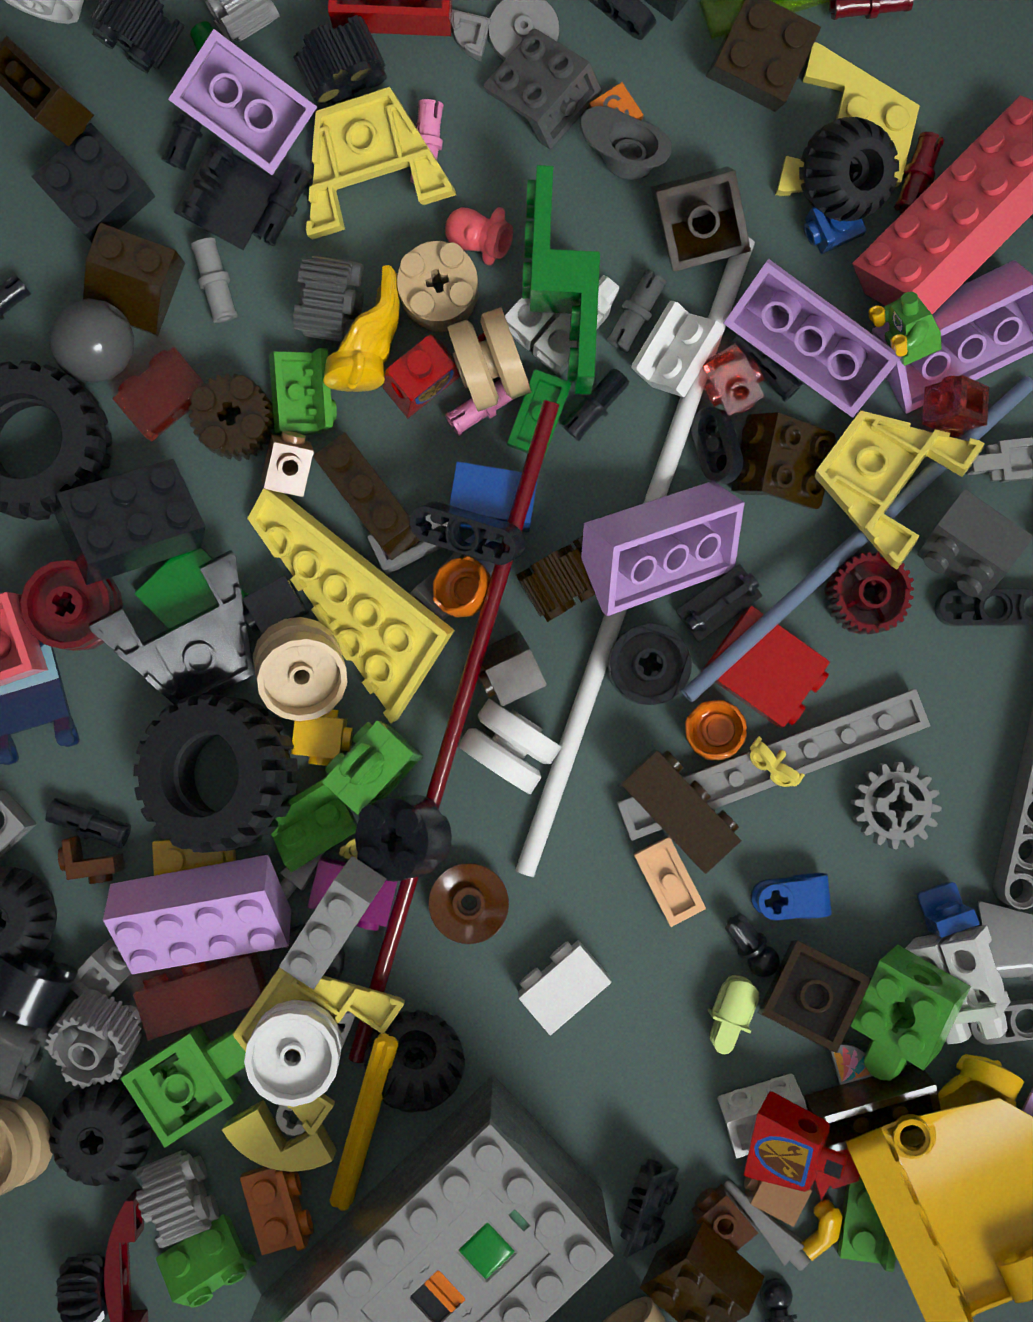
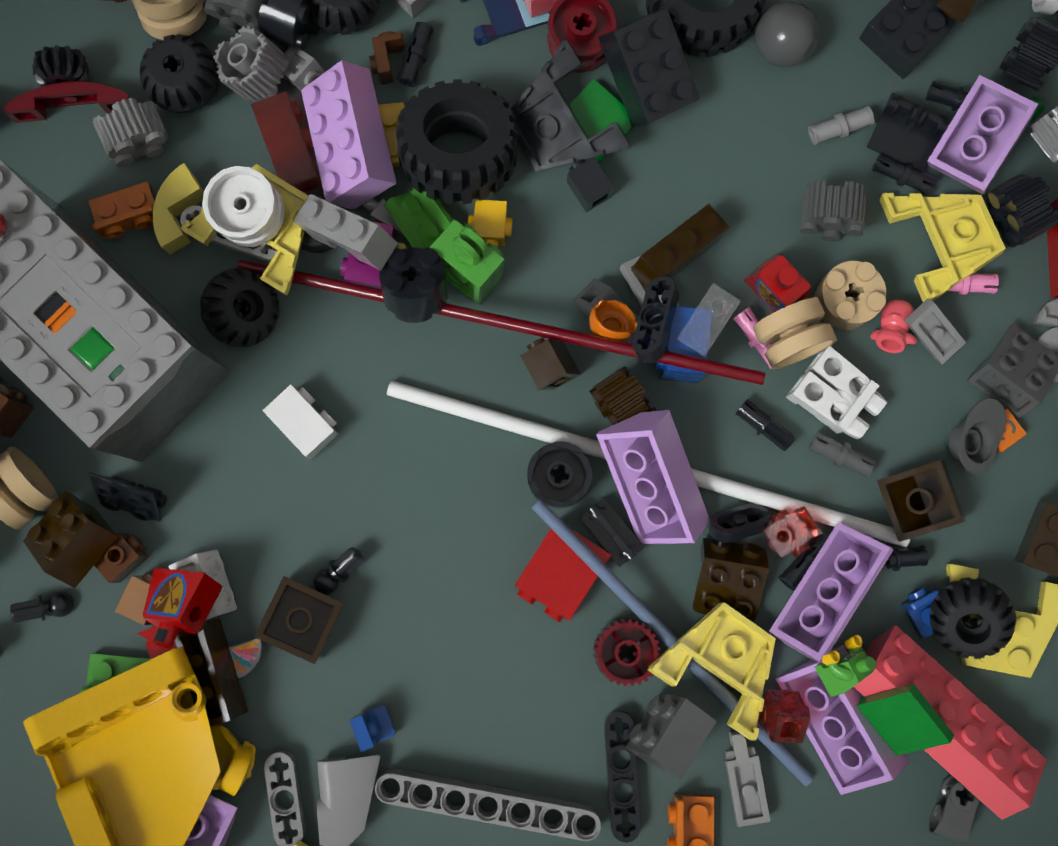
camera: 90 degrees right, 5 degrees down
(132, 276) = (838, 63): dark brown slope -> none
(159, 393) = (749, 90): clear red brick -> none
(186, 1082) = (218, 132): bright green brick -> none
(204, 1263) = (81, 158): bright green bracket -> none
(214, 403) = (738, 127): dark brown brick -> none
(287, 463) = (701, 186): brick -> none
(299, 394) = (758, 195): bright green bracket -> none
(299, 669) = (541, 201): tan wheel -> none
(363, 1121) = (191, 268): yellow axle -> none
(367, 345) = (802, 240): yellow hair -> none
(370, 615) = (594, 246): light yellow wing -> none
(465, 924) = (356, 330): reddish brown dish -> none
(470, 466) = (708, 319): none -> clear slope
(490, 184) = (934, 331): none -> light grey plate
(512, 741) = (486, 365): white wheel -> none
(542, 387) = (772, 389): green plate -> none
(561, 281) = (863, 384): green bracket -> none
(669, 881) = (387, 502): light nougat plate -> none
(676, 349) = (814, 486): white bracket -> none
(681, 809) = (444, 505): dark brown brick -> none
(715, 729) = (509, 532): orange hair -> none
(732, 1012) = (285, 557): yellowish green arm -> none
(764, 759) = (486, 572): light yellow piece -> none
(767, 242) = (907, 557): none -> black pin
(782, 1241) = (104, 605): light grey piece -> none
(799, 895) = (379, 608): blue piece -> none
(804, 753) = (485, 582): light grey plate -> none
(828, 1229) = (112, 642): yellow arm -> none
(896, 789) = (455, 697): light grey gear -> none
(907, 1012) = (288, 695): bright green brick -> none
(920, 171) = (977, 681): dark red pin -> none
(971, 961) = (312, 739): white hips -> none
(972, 261) = (905, 720): none -> green tile

